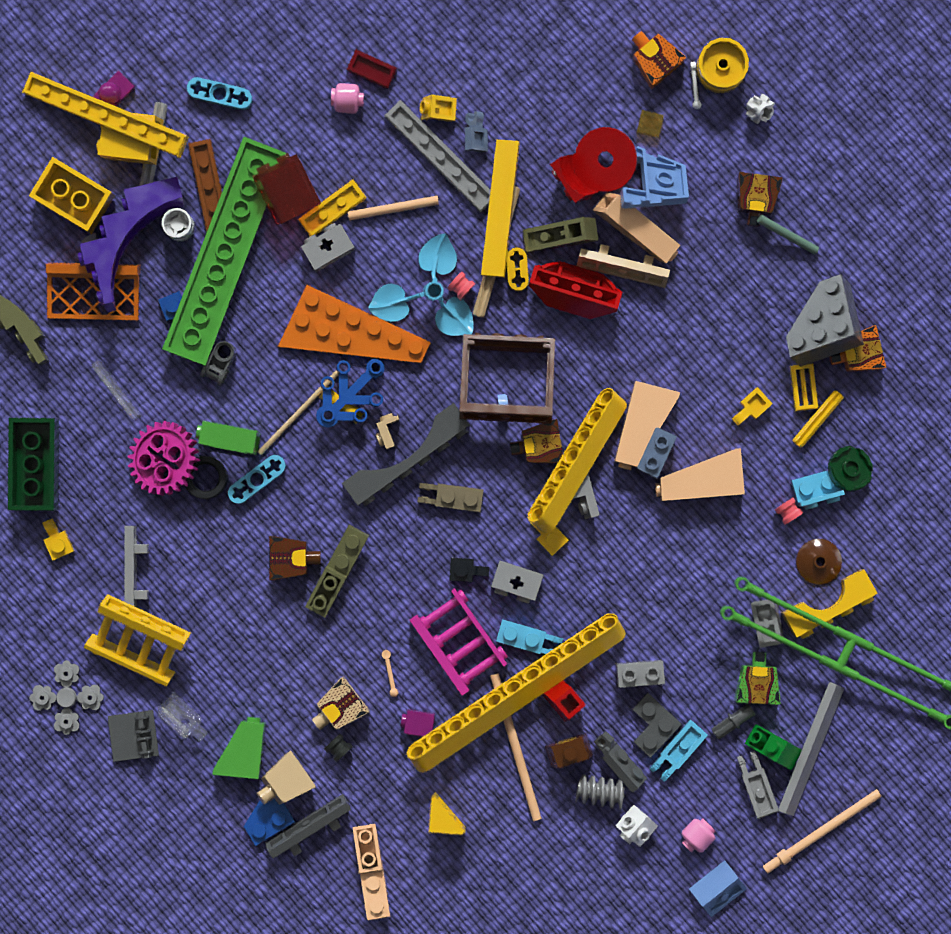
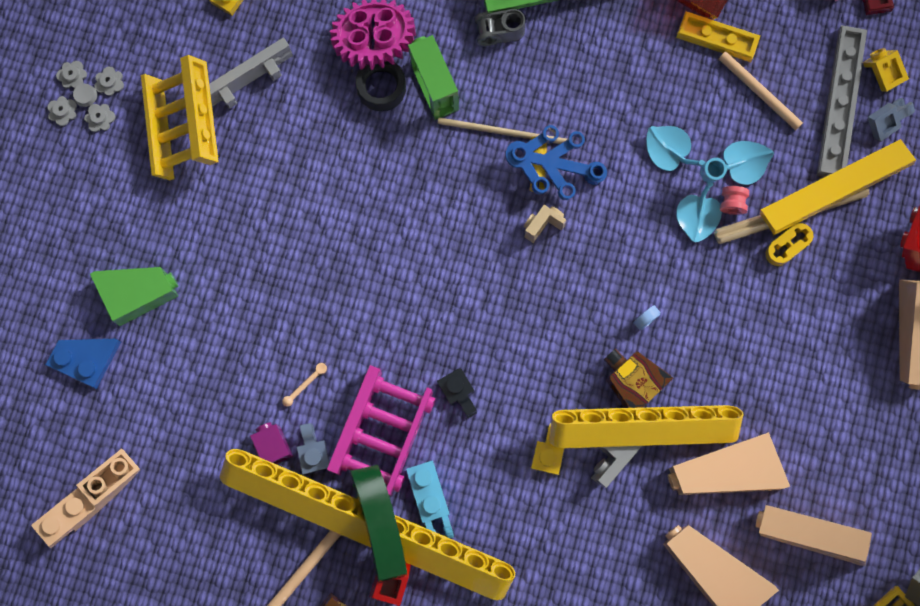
camera: 60 degrees right, 10 degrees down
(133, 735) = (85, 179): dark grey hinge -> none
(174, 710) = (129, 208): clear torso -> none
(247, 495) = (391, 133): medium azure beam -> none
(285, 780) = (127, 349): tan torso -> none
(290, 558) = (355, 211): torso -> none
(299, 831) = (73, 394): dark grey hinge -> none
(322, 258) = (666, 55): light grey brick -> none
(337, 571) = (372, 266): olive slope -> none
(338, 747) = (195, 381): pearl dark grey wheel -> none
(339, 328) = (611, 117): orange wing -> none
(340, 706) = (239, 355): torso -> none
(366, 483) = (586, 276): dark grey arch -> none
(443, 698) = (313, 454): none -> sand blue plate
(443, 819) = (186, 534): yellow slope -> none
(454, 497) = (523, 331): dark tan hinge -> none
(501, 412) = (646, 322): reddish brown window -> none
(521, 682) = (379, 522): none -> dark green slope
(530, 579) = (492, 461): light grey brick -> none
(561, 234) = (857, 263): olive slope -> none
(575, 289) = (811, 311): red wedge -> none
(624, 268) = (869, 345): tan hinge -> none
(656, 452) = (711, 503): sand blue bracket -> none
(722, 397) = (815, 534): none -> light nougat slope
(754, 405) = (829, 574): yellow plate -> none

